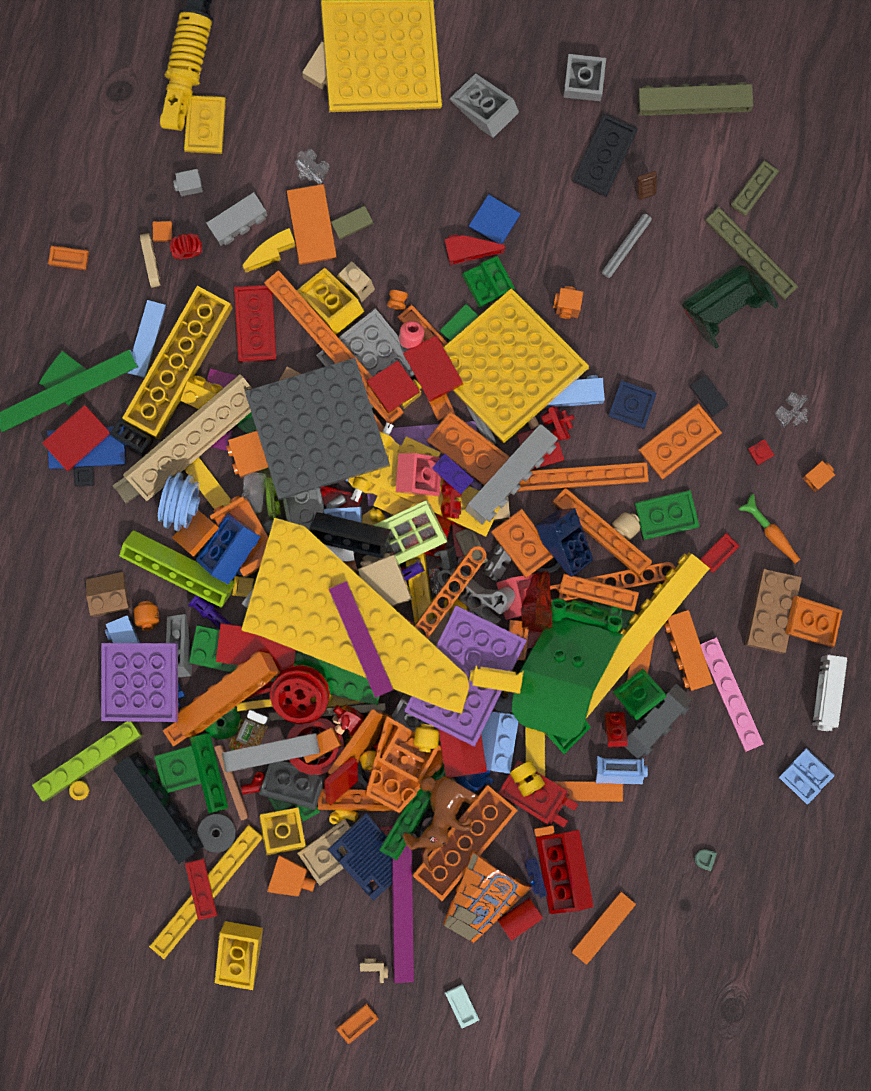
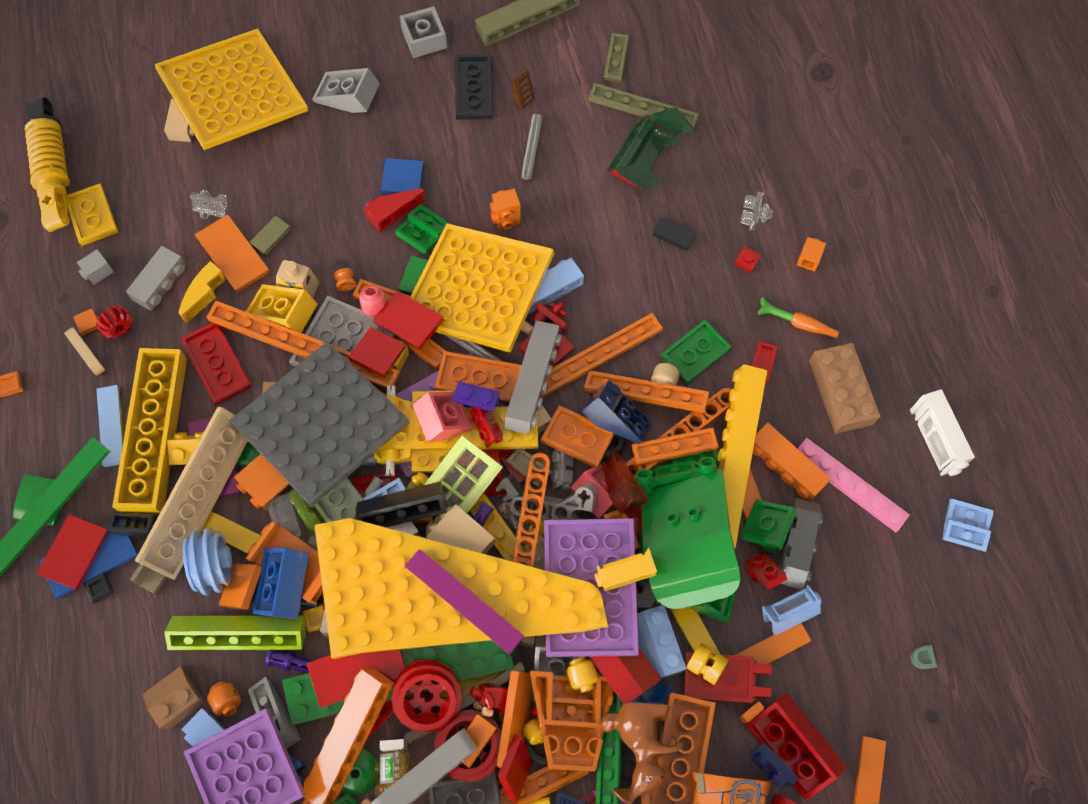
camera: 30 degrees left, 15 degrees down
(254, 705) = (386, 734): yellow tile -> none
(632, 404) = (610, 271): dark blue plate -> none
(680, 441) = (670, 283): orange tile -> none
(813, 621) = (886, 377): orange tile -> none

